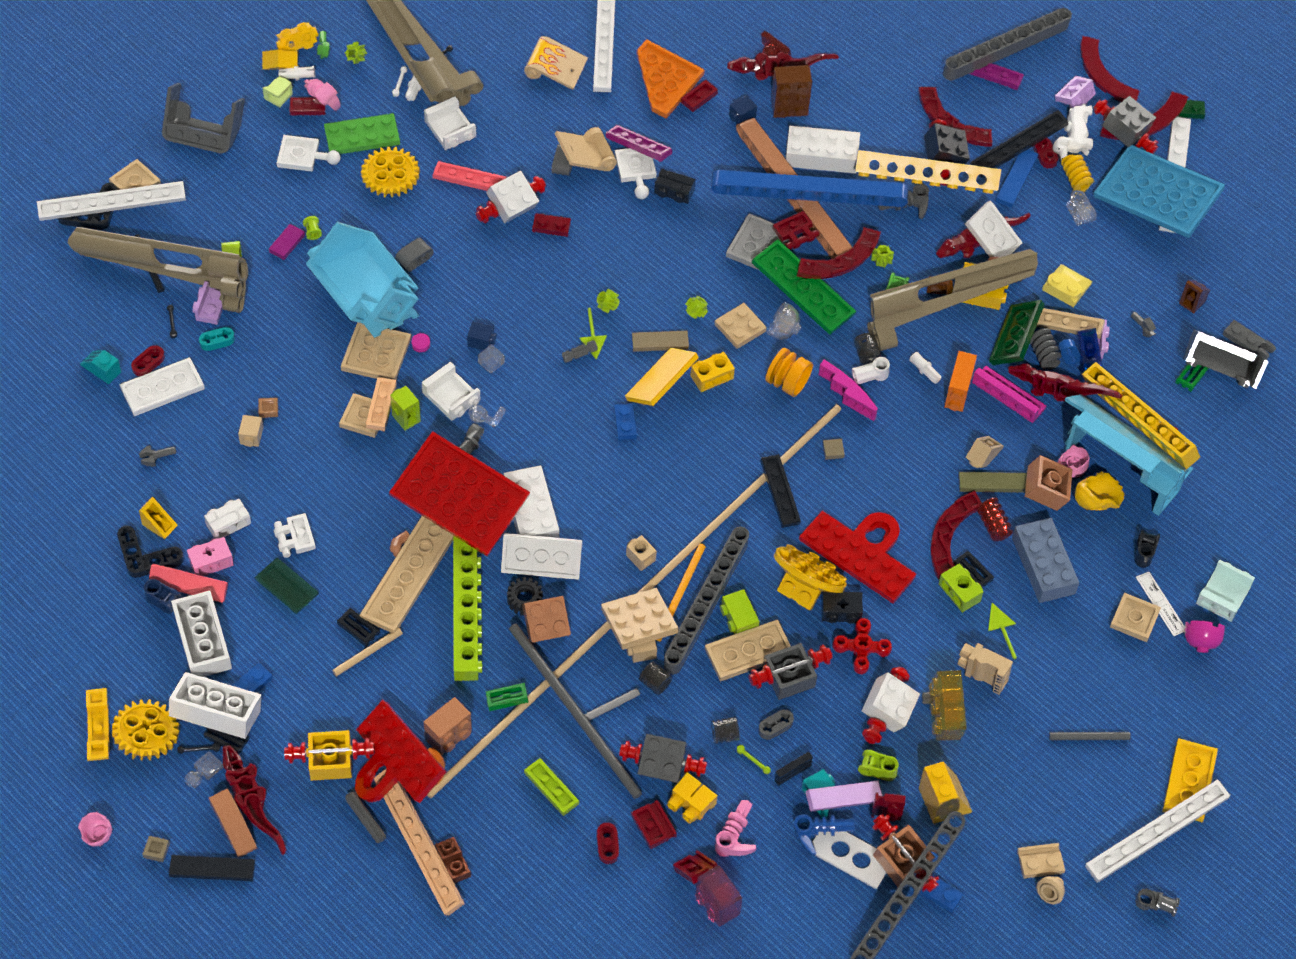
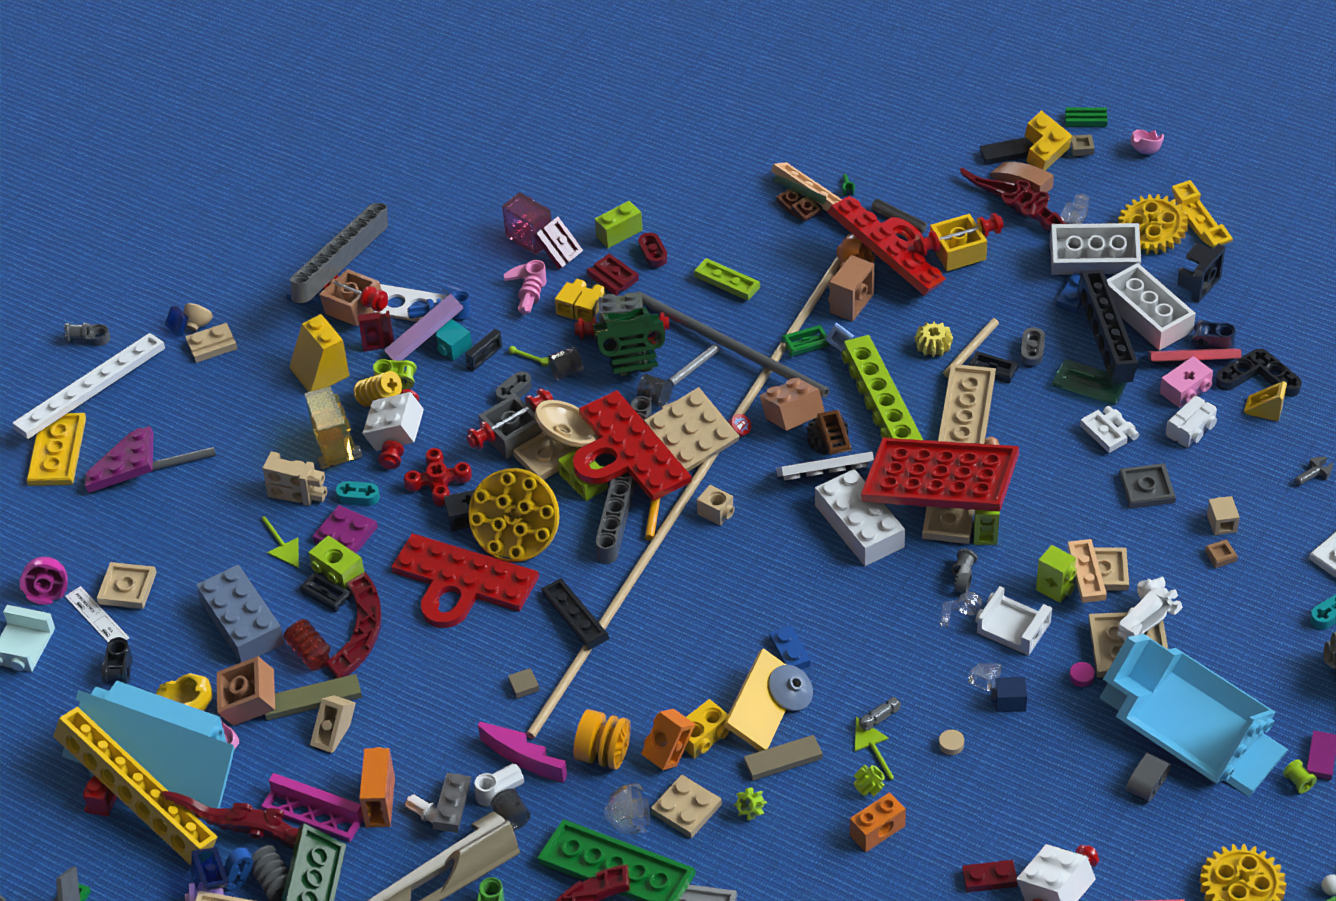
camera: 170 degrees right, 10 degrees down
(120, 877) = (1086, 117): none -> green tile
(133, 653) = (1206, 273): none -> black panel
(191, 845) = (1049, 141): none -> yellow brick
(250, 615) = (1107, 326): none -> black brick
(291, 480) = (1147, 485): none -> dark grey tile
(316, 634) = (1032, 346): none -> flat silver plate
(353, 355) = (1150, 610): none -> white animal
(390, 665) = (933, 339): none -> light yellow gear
(397, 870) = (848, 185): none -> green hand
(447, 864) = (800, 189): none -> clear green bar
(477, 685) = (838, 336): none -> light blue slope
(523, 580) = (828, 418): none -> reddish brown slope
(536, 319) = (951, 742): none -> tan tile
(595, 625) = (740, 424): none -> red tile
(613, 271) = (877, 822): none -> orange brick
(631, 879) = (618, 224): none -> lime brick
(637, 384) = (785, 693): none -> sand blue dish
(649, 723) = (630, 343): none -> dark green piece
(693, 610) = (633, 445): none -> red plate
(738, 635) = (564, 424): none -> tan dish
(741, 358) = (663, 751): none -> orange brick
(902, 743) = (377, 387): none -> yellow piece
(907, 363) = (452, 802): none -> flat silver plate
(932, 655) = (357, 493): none -> teal beam
(948, 622) = (347, 528): none -> magenta plate
(1072, 888) = (176, 320): none -> clear blue tile
(1130, 740) = (125, 461): none -> magenta plate

